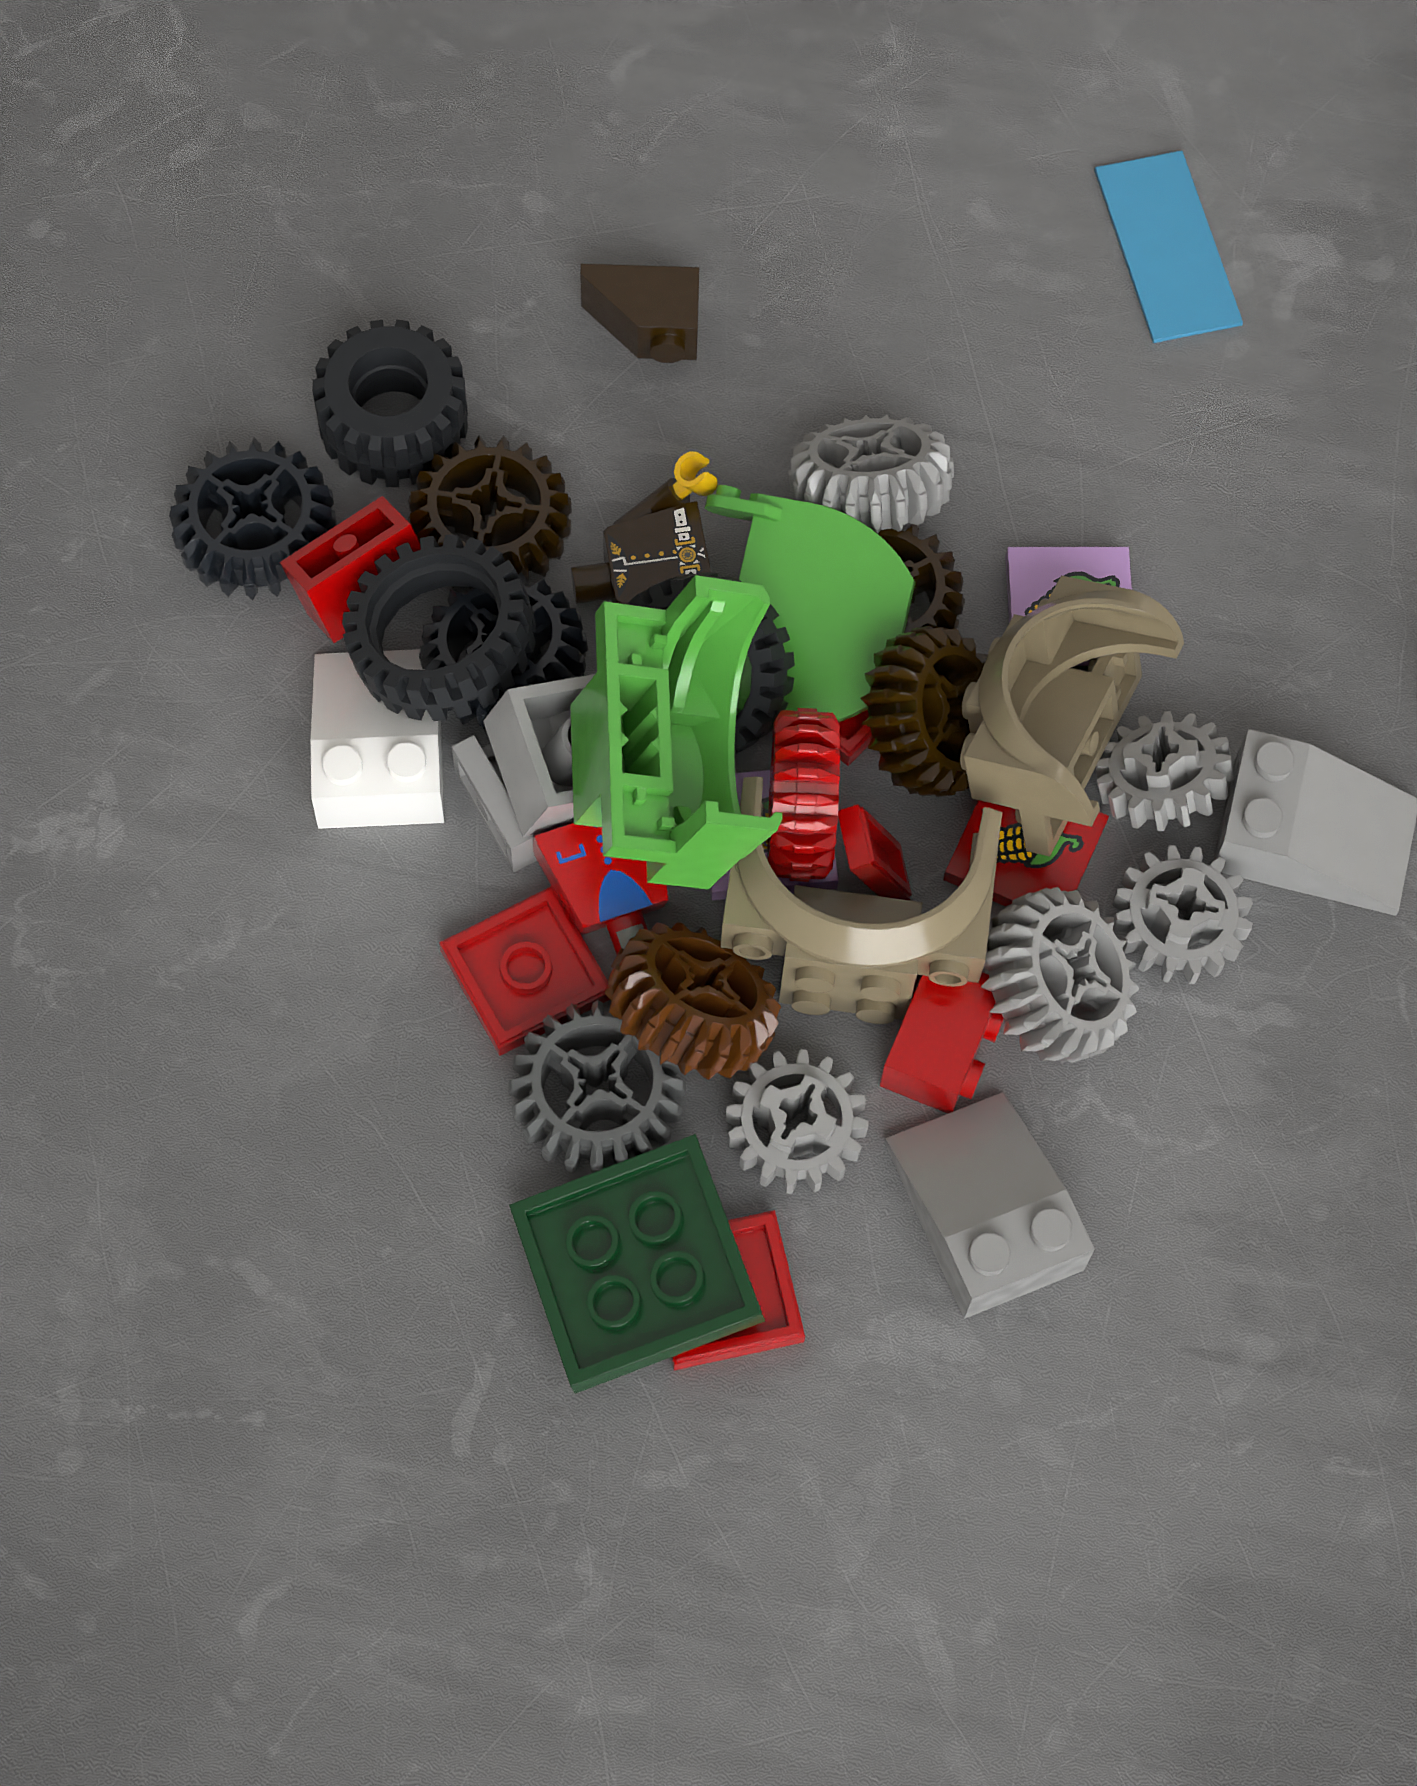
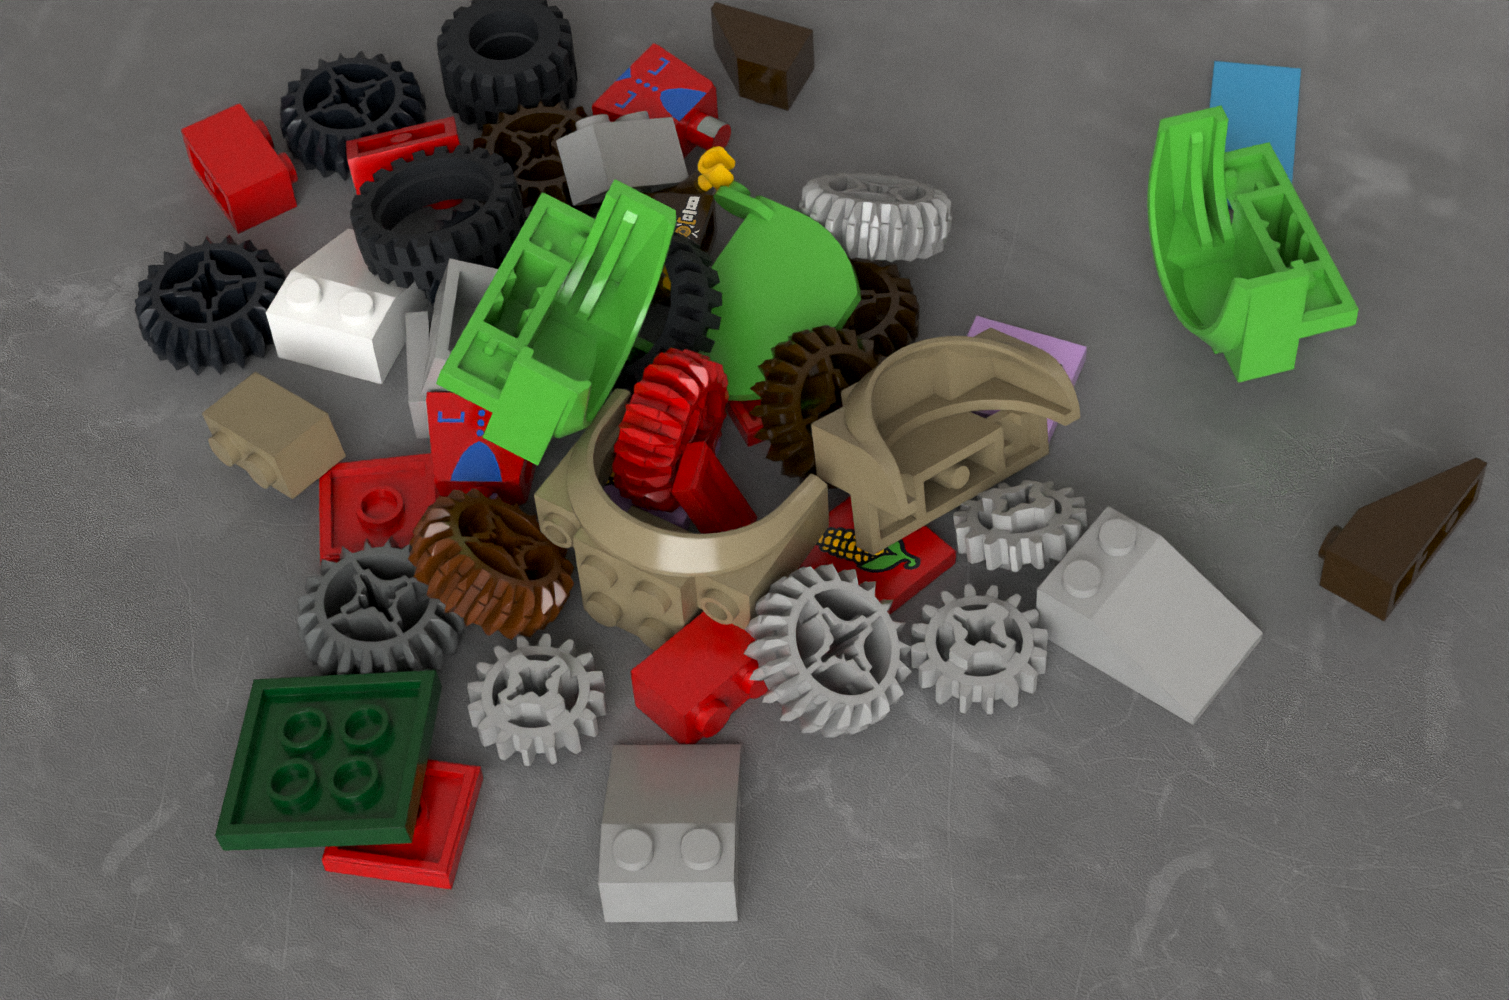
camera: 30 degrees right, 15 degrees down
(165, 622) = (241, 167): none -> red brick
(268, 768) = (209, 304): none -> black gear
(383, 931) = (273, 435): none -> dark tan brick
(581, 407) = (668, 89): none -> red torso
(586, 491) = (631, 150): none -> light grey brick
(1265, 426) = (1244, 282): none -> bright green piece

